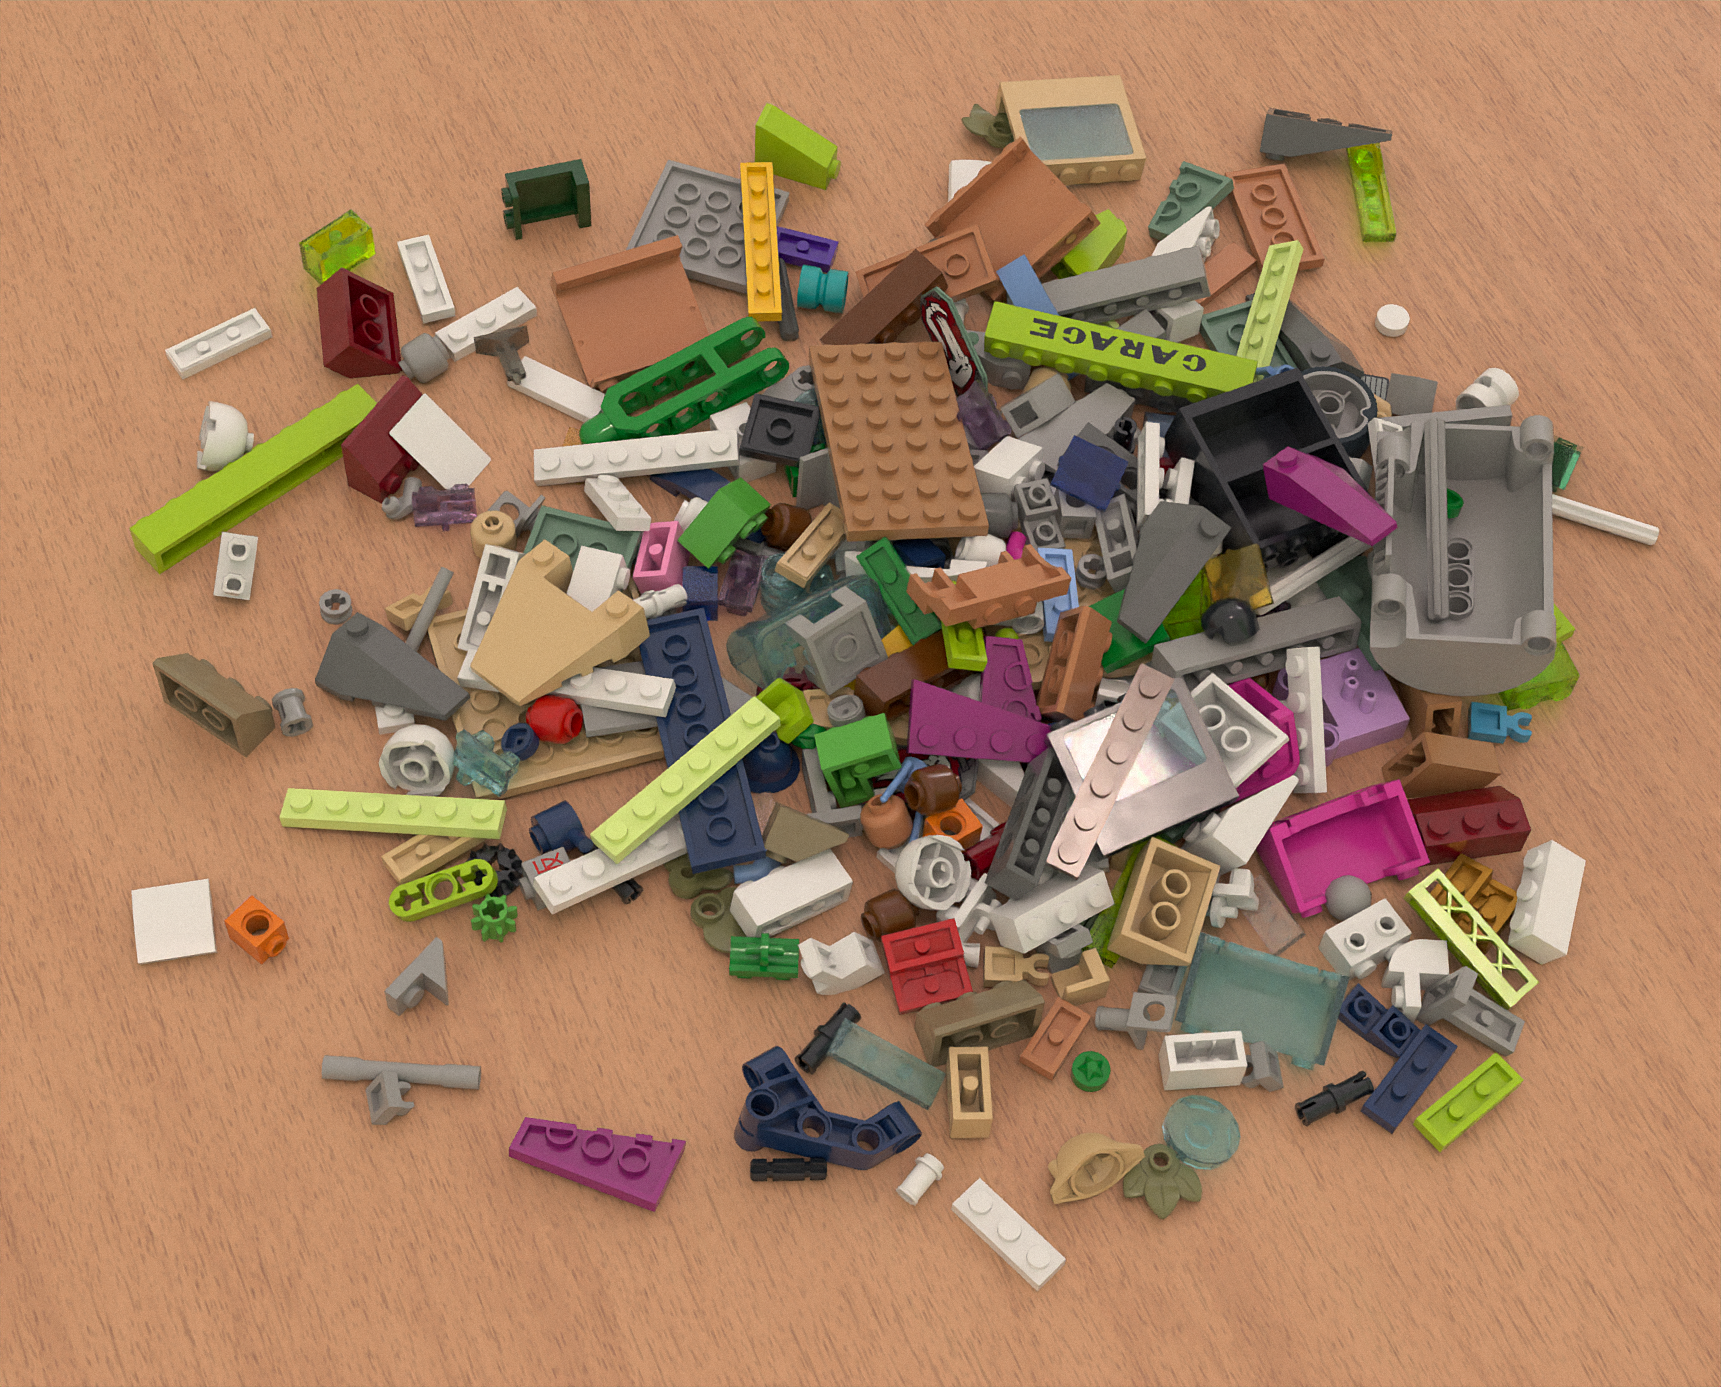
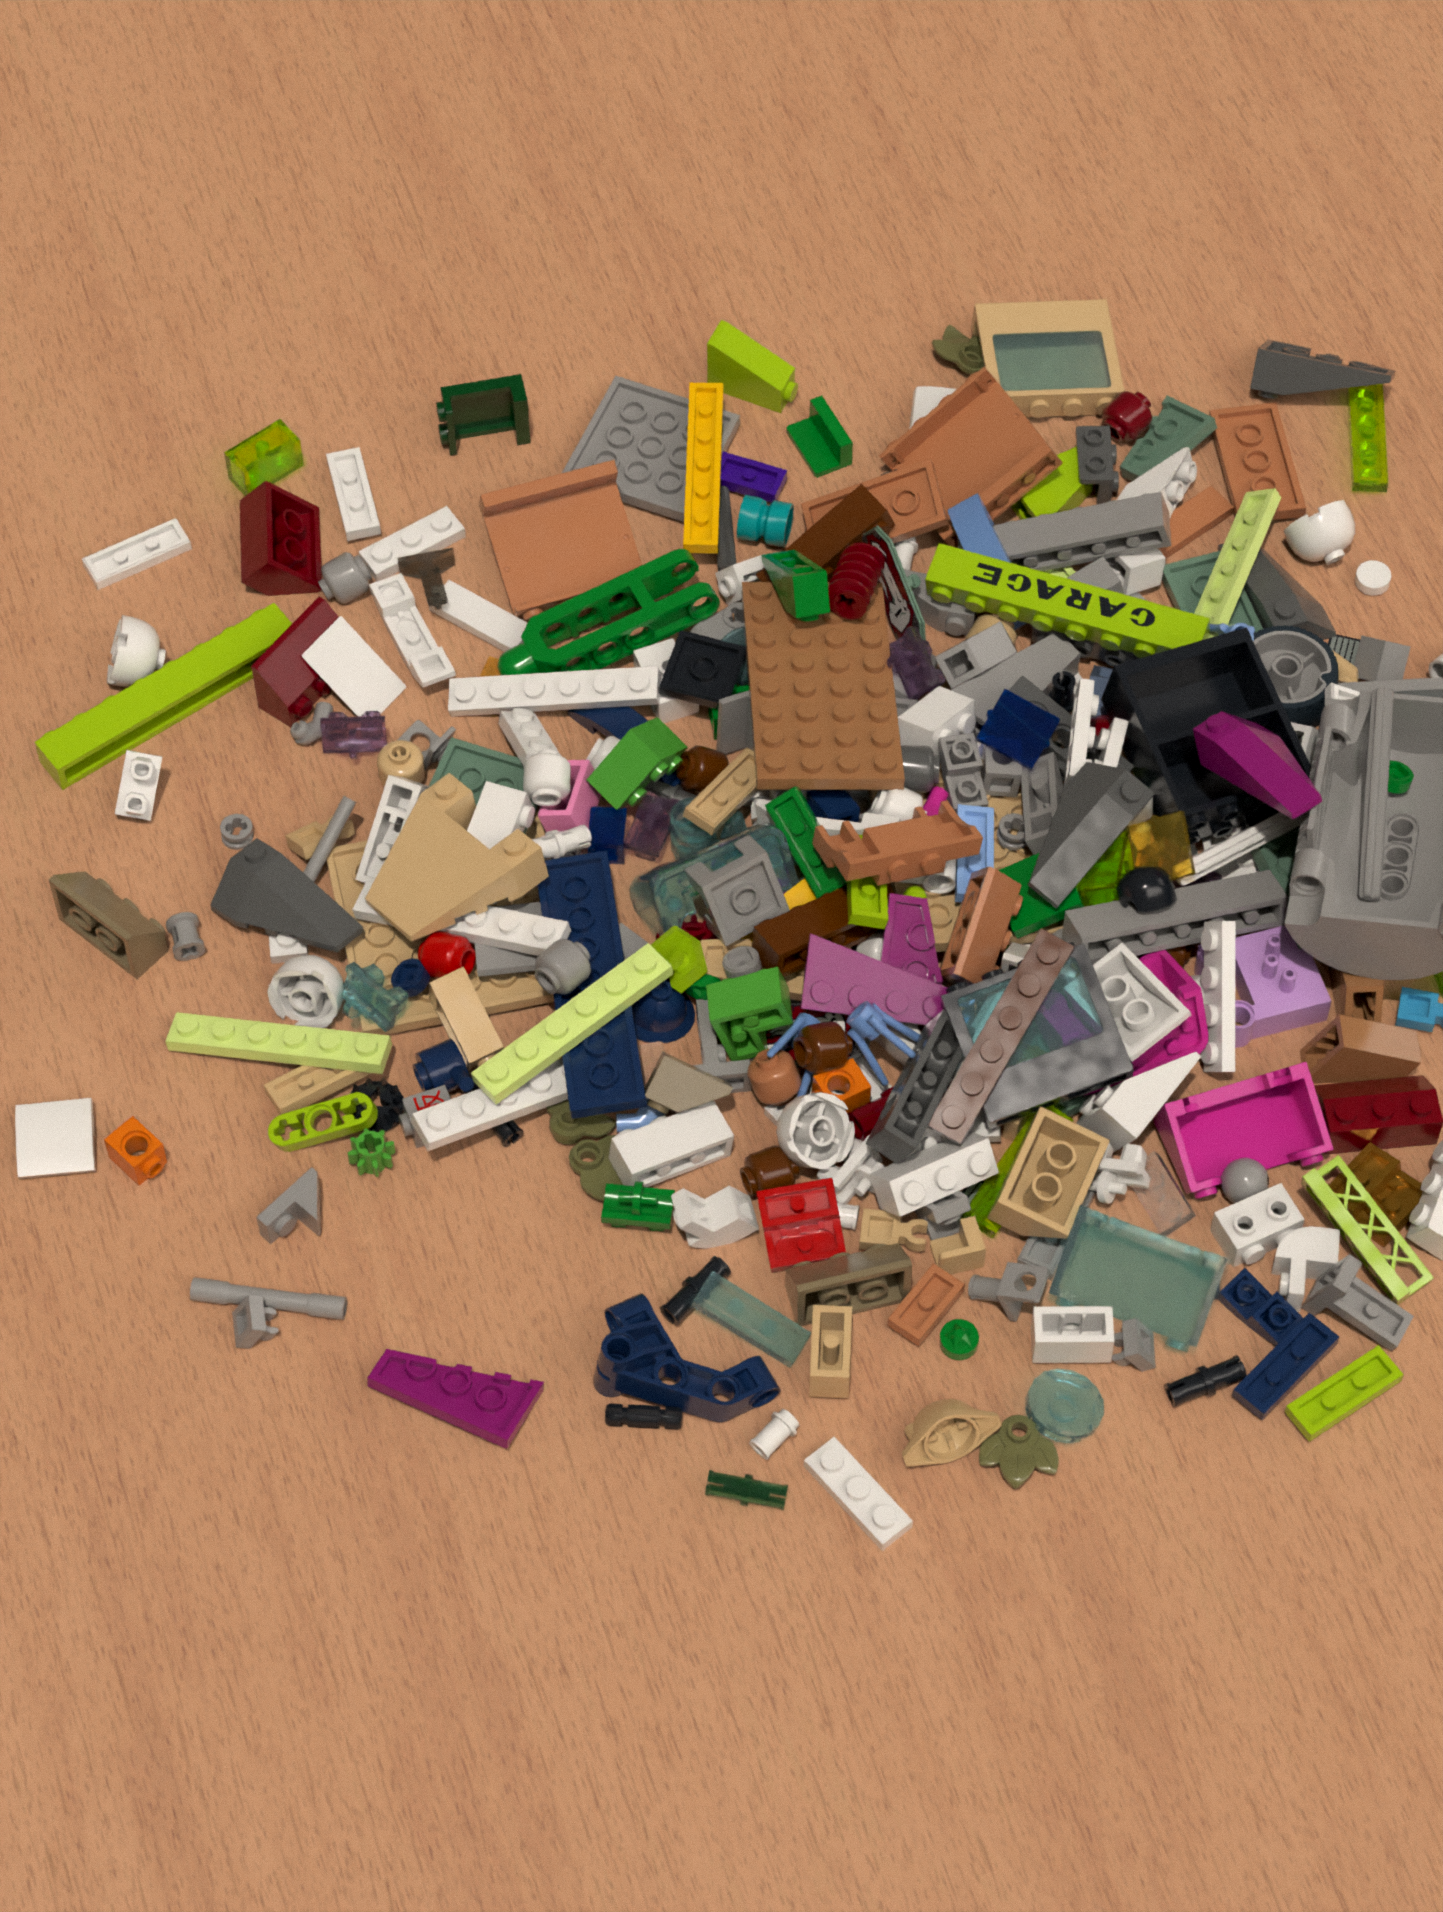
camera: 10 degrees right, 0 degrees up
(490, 406) = (409, 632): none -> white slope
(579, 780) = (465, 1018): none -> tan window
(640, 540) = (547, 778): none -> white head
(672, 724) = (562, 967): none -> light grey head
(797, 344) = (731, 578): none -> white bracket
(866, 344) = (798, 583): none -> green slope
(867, 212) = (821, 439): none -> green panel
(898, 1238) = (746, 1490): none -> clear green pin
(918, 339) = (855, 580): none -> dark red piece
(979, 763) = (870, 1022): none -> medium blue plant
(1128, 221) = (1096, 460): none -> dark grey bracket
(1150, 180) = (1127, 415): none -> dark red head
(1344, 281) = (1322, 534): none -> white cylinder

